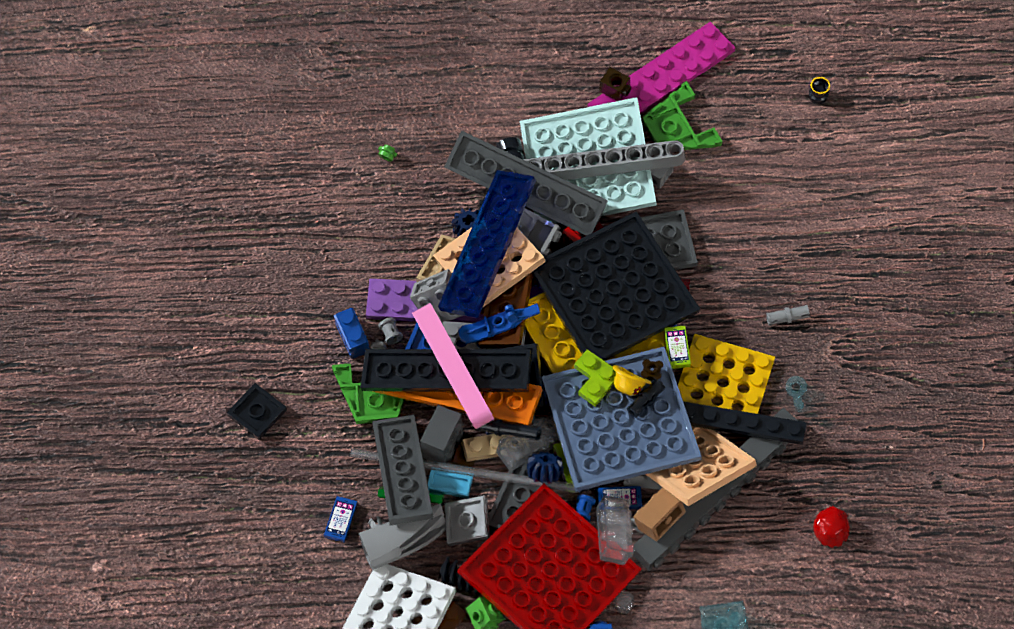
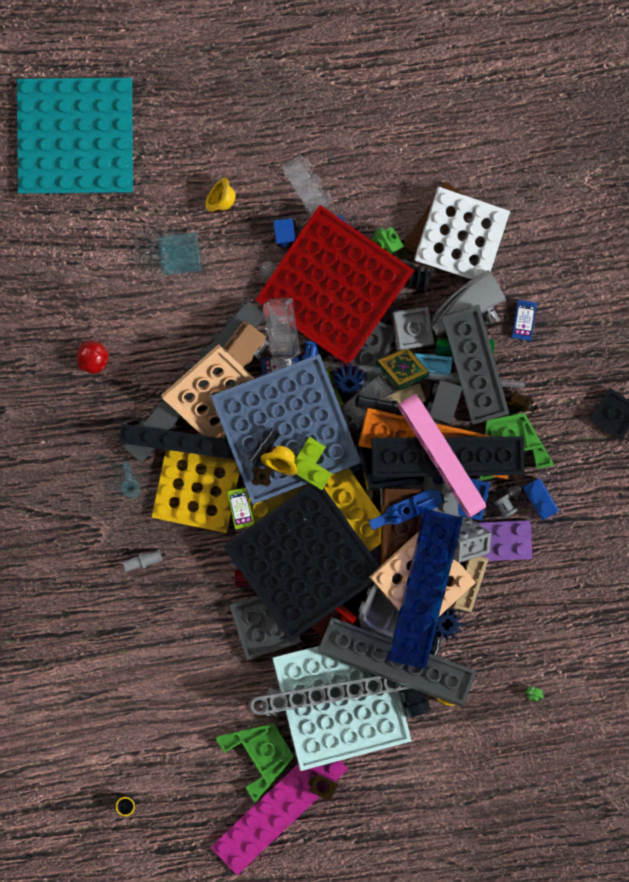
camera: 170 degrees right, 25 degrees up
(358, 434) = (520, 401): none -> dark brown bush
(483, 474) = (402, 368): none -> clear green tile

